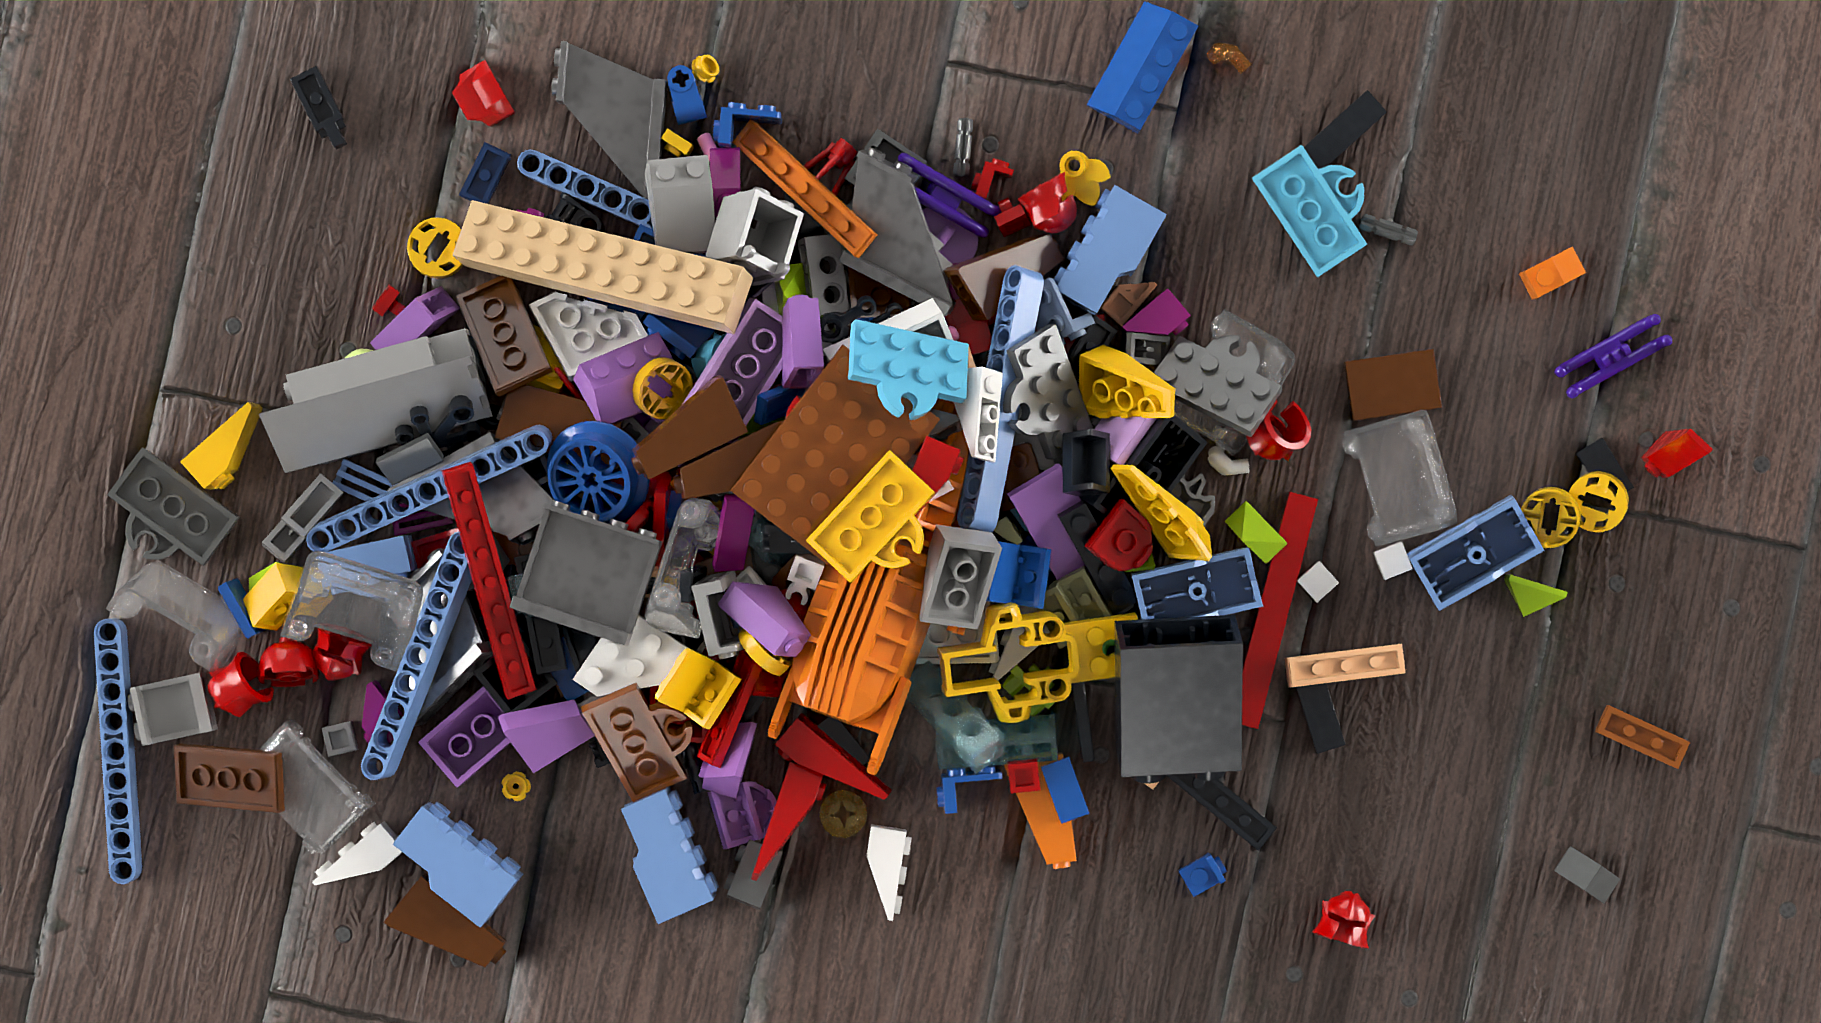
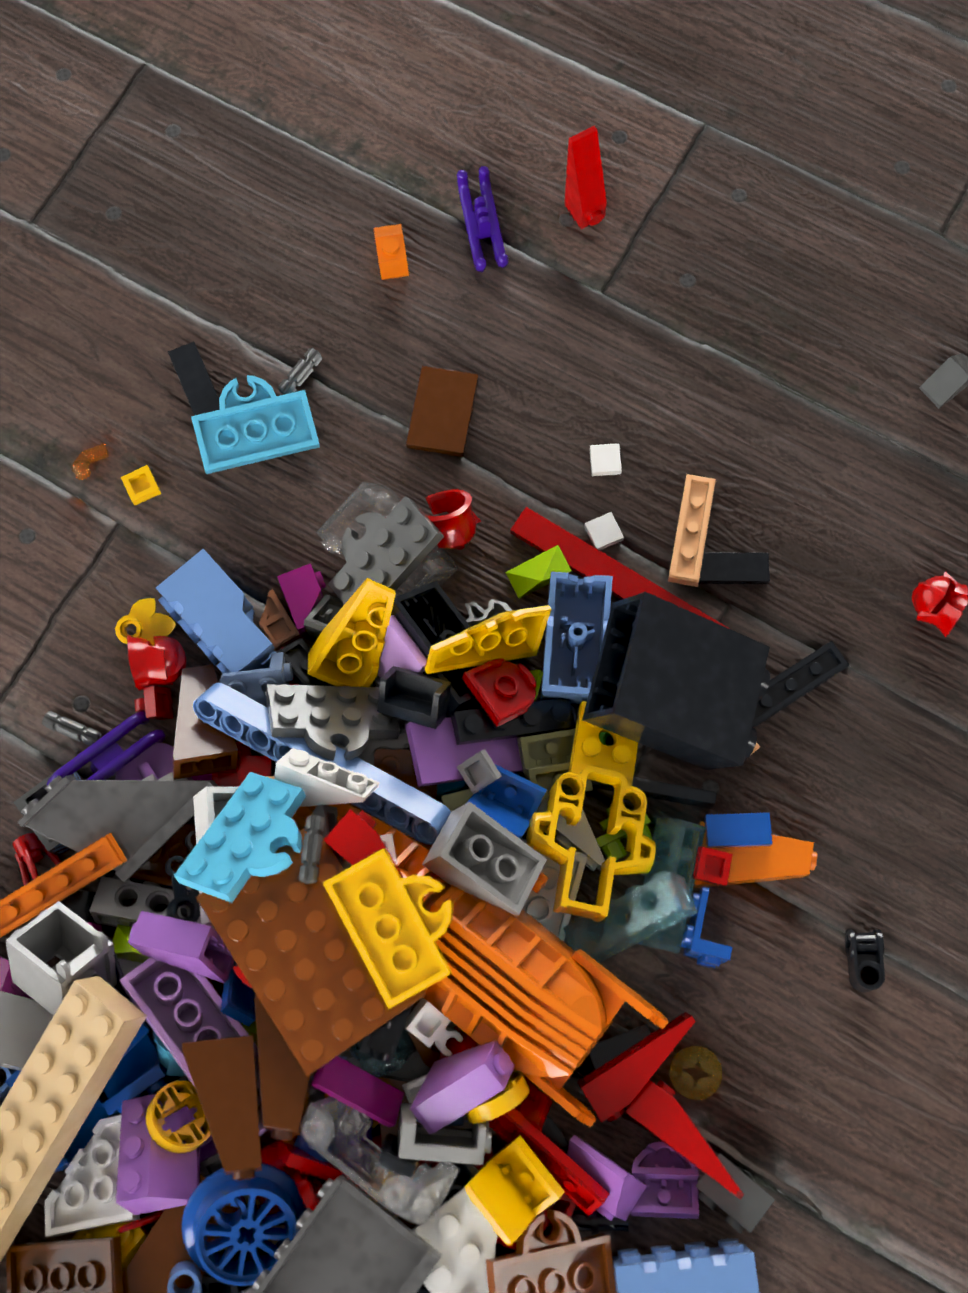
camera: 70 degrees left, 15 degrees down
(885, 859) = (756, 1042): white slope -> none
(915, 428) = (311, 849): none -> dark grey axle
(983, 181) = (102, 707): red bracket -> none
(991, 933) = (865, 956): none -> black piece
(1038, 543) = (479, 771): none -> light grey tile
(1142, 66) = (64, 538): blue slope -> none
(1203, 873) = (858, 724): blue bracket -> none
(1219, 118) = (140, 485): none -> yellow plate
(1224, 464) = (464, 581): white arm -> none
(1402, 477) = (530, 427): clear windscreen -> none
(1475, 552) = (622, 378): medium blue piece -> none
(1532, 595) = (675, 349): lime slope -> none
(1565, 519) = (616, 301): yellow piece -> none
(1600, 458) = (582, 259): black tile -> none
(1602, 489) = (597, 260): yellow piece -> none
(1642, 736) = (835, 295): dark orange plate -> none

